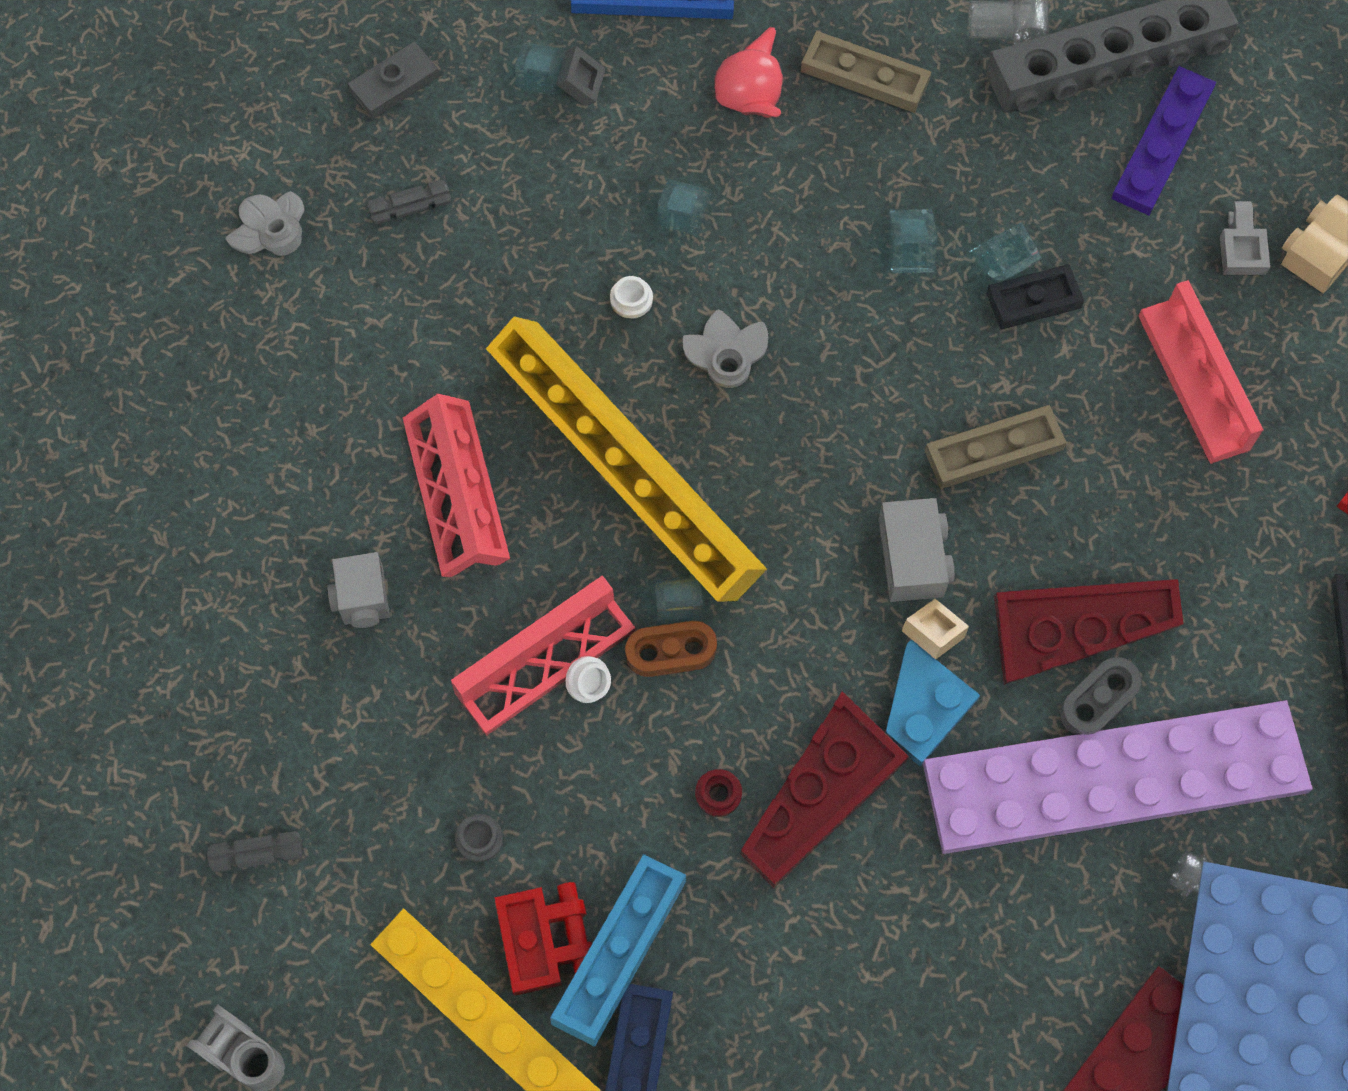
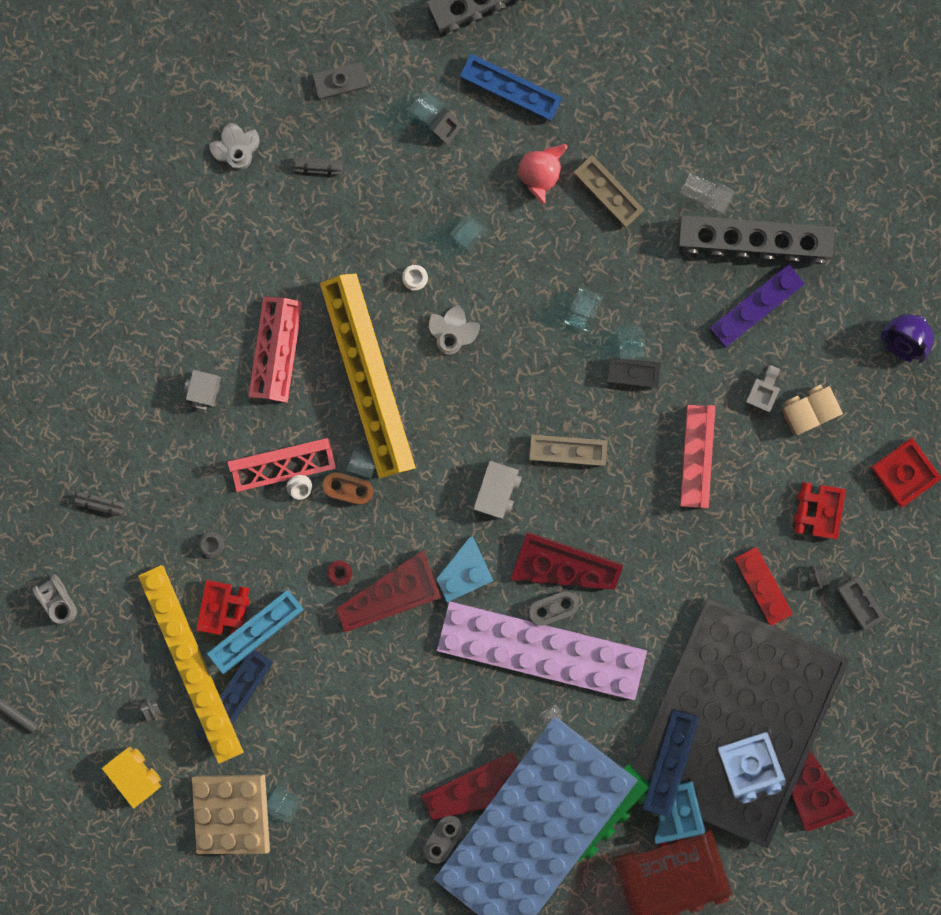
camera: 25 degrees right, 20 degrees up
(935, 628) = (487, 536): tan plate -> none

